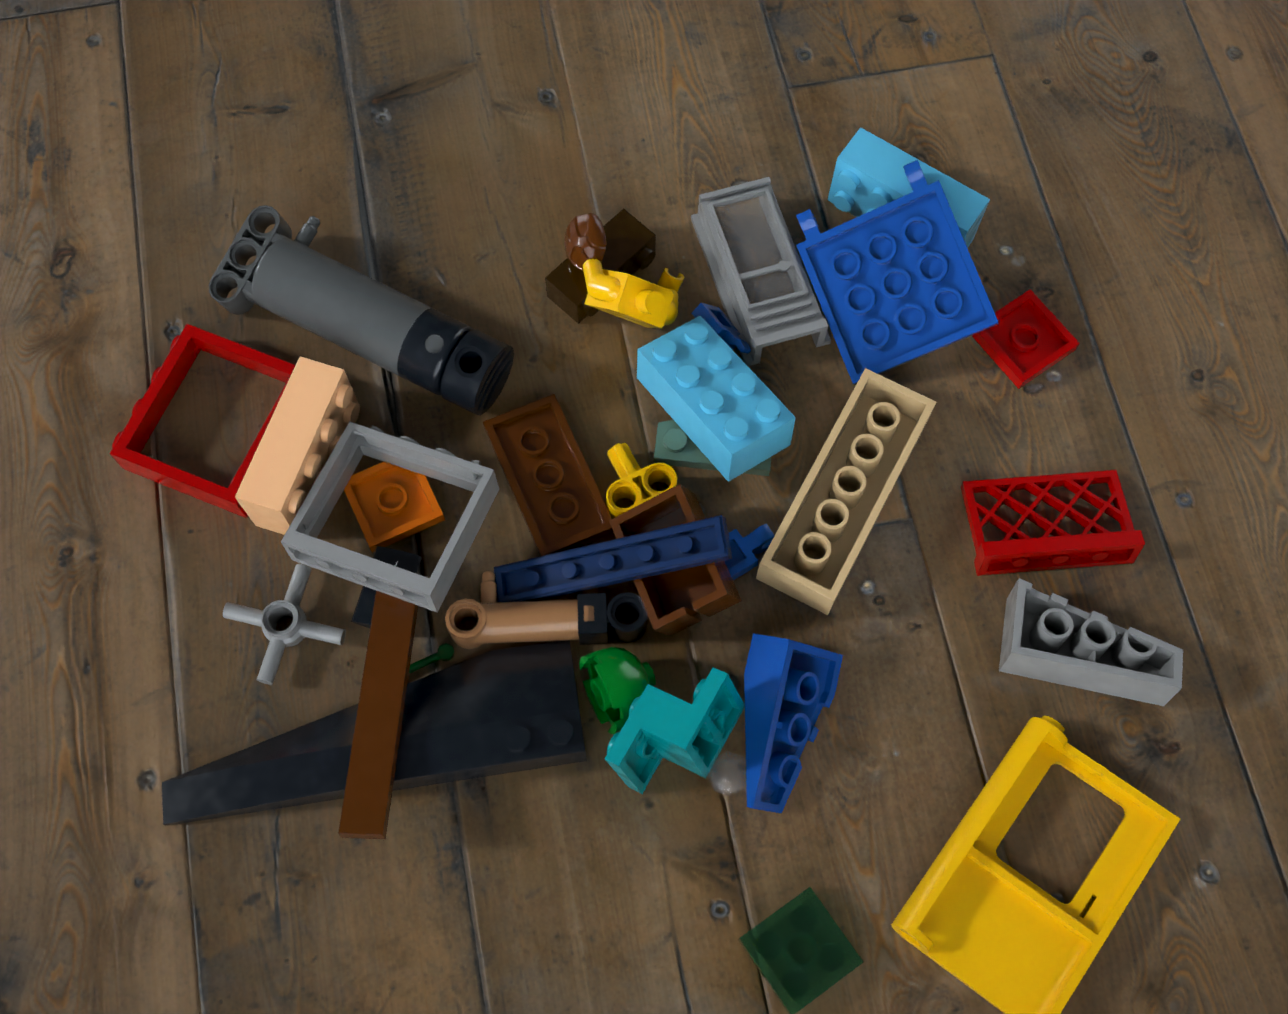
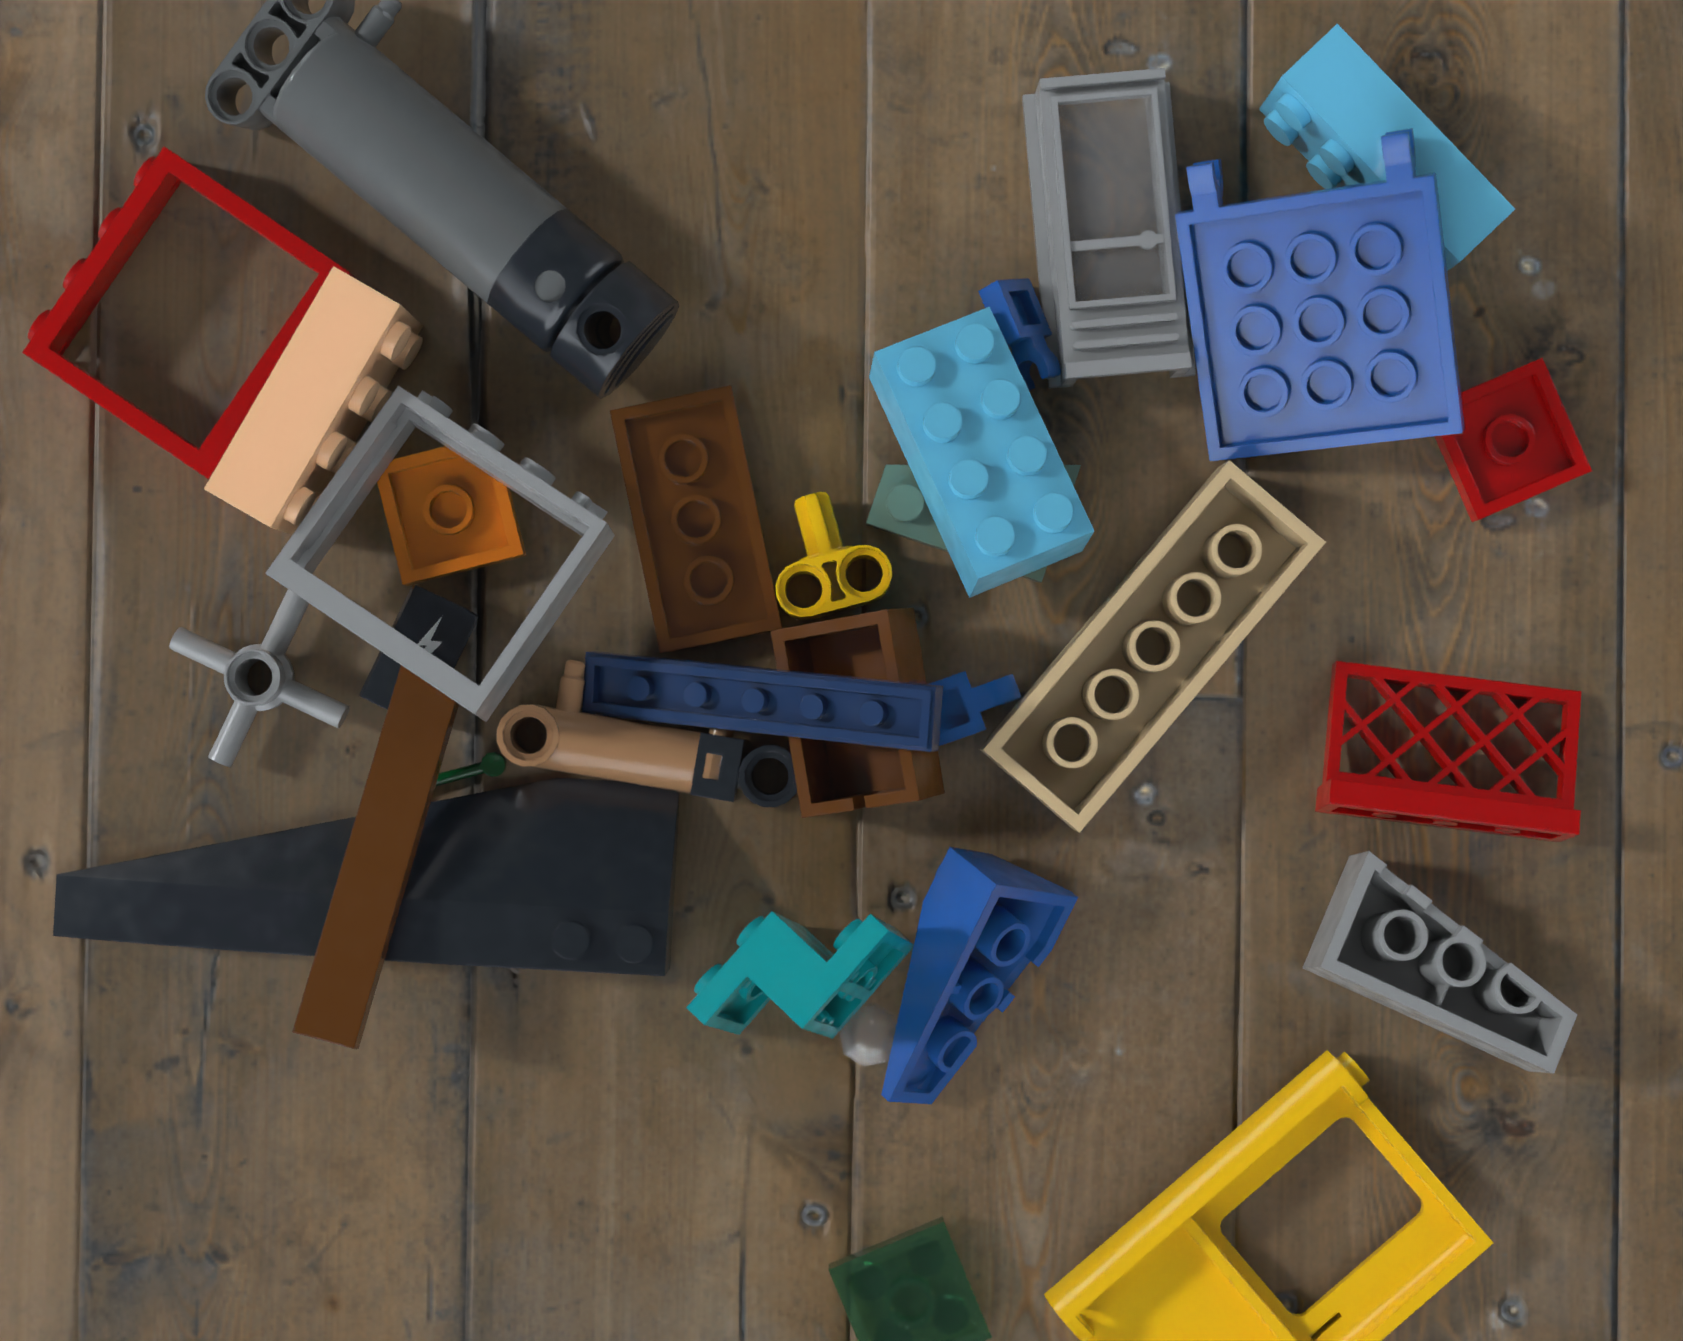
camera: 10 degrees right, 20 degrees up
(614, 683) = (733, 880): green cylinder -> none
(617, 291) = (863, 243): yellow torso -> none
(627, 250) = (854, 168): dark brown brick -> none

